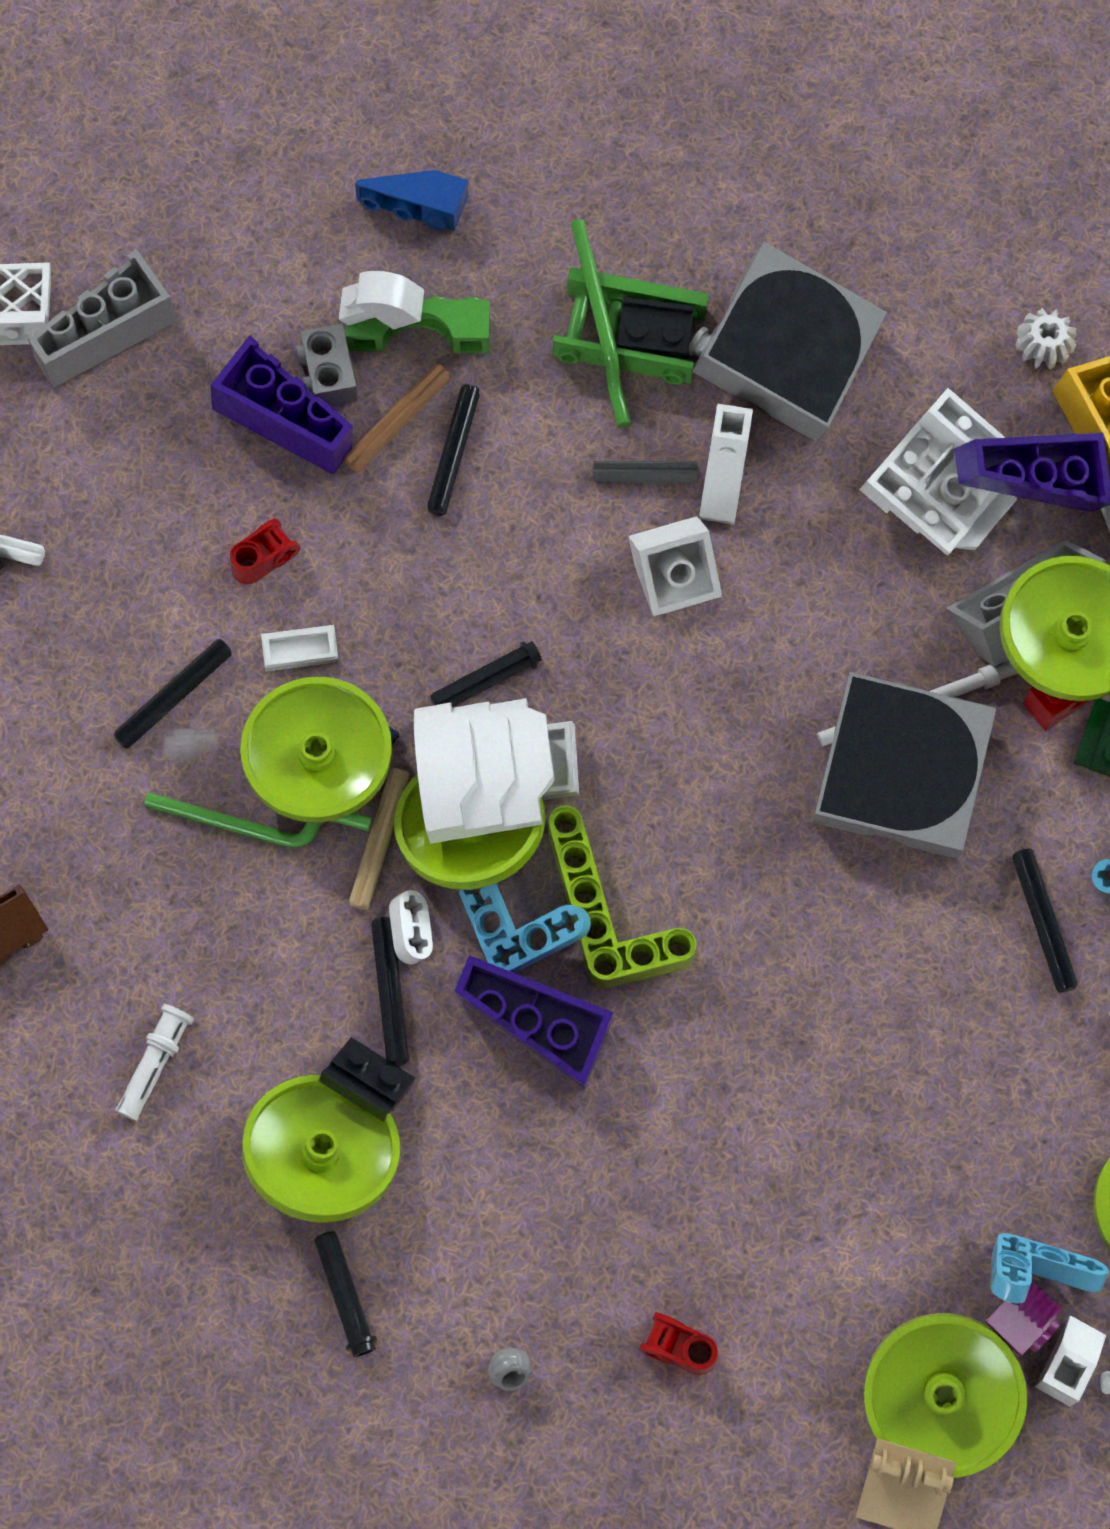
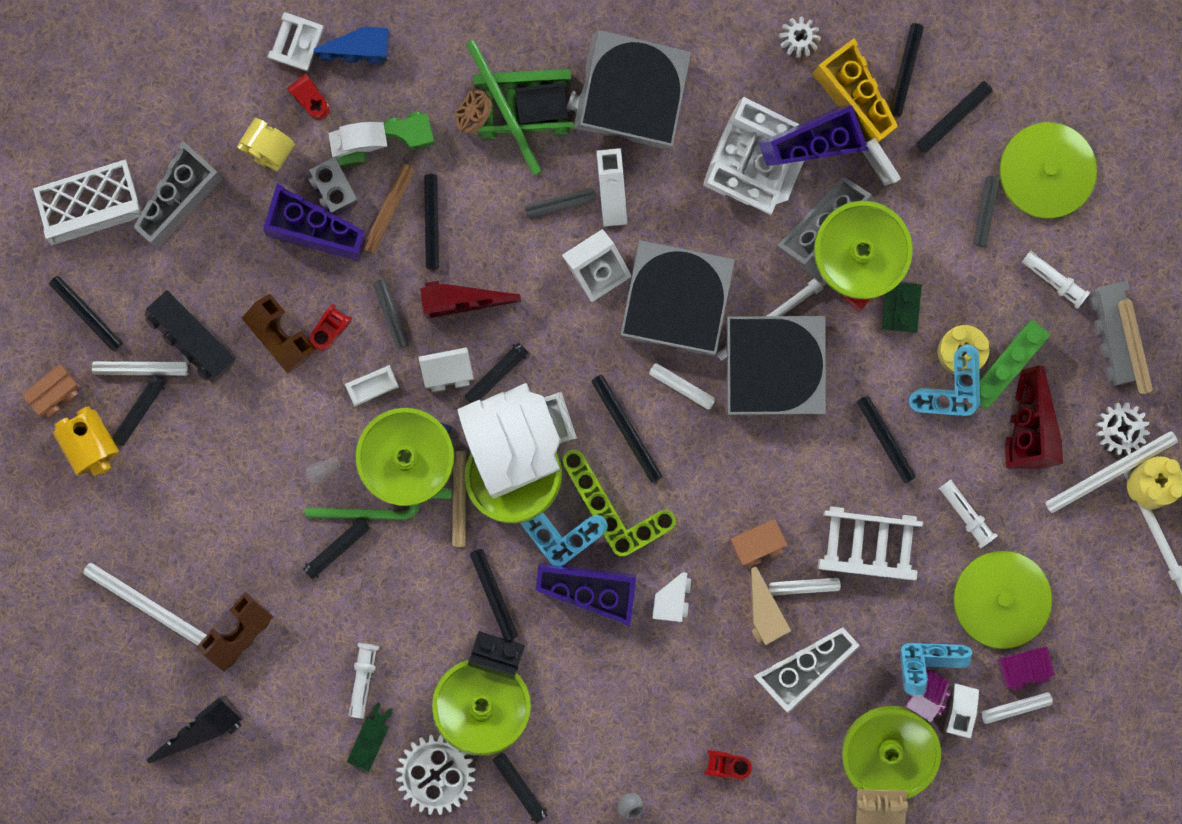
camera: 15 degrees left, 15 degrees up
(58, 510) = (189, 337): none -> black brick
(136, 1157) = (369, 740): none -> dark green plate
(172, 514) = (264, 322): none -> reddish brown arch
(172, 693) = (300, 438): black axle -> none
(174, 861) = (335, 549): none -> black axle
(232, 1269) = (449, 792): none -> white gear
(251, 284) = (266, 144): none -> light yellow brick
(330, 245) = (307, 95): none -> red piece
(337, 186) = (303, 44): none -> white plate
(357, 557) = (390, 314): none -> dark grey axle
(410, 927) = (495, 552): white beam -> none
(415, 644) = (446, 369): none -> white slope
(451, 557) = (452, 299): none -> dark red wedge
(555, 316) = (472, 111): none -> medium nougat wheel
(656, 1066) = (670, 600): none -> white slope
(657, 804) = (626, 428): none -> black axle
(756, 765) = (682, 386): none -> white axle
(780, 638) = (677, 298): none -> black tile
(799, 1129) = (766, 615): none -> tan slope
(813, 1018) = (758, 542): none -> nougat brick
(838, 1229) = (807, 669): none -> white wedge
(867, 1104) = (804, 586): none -> white axle
(955, 1090) = (855, 563): none -> white fence

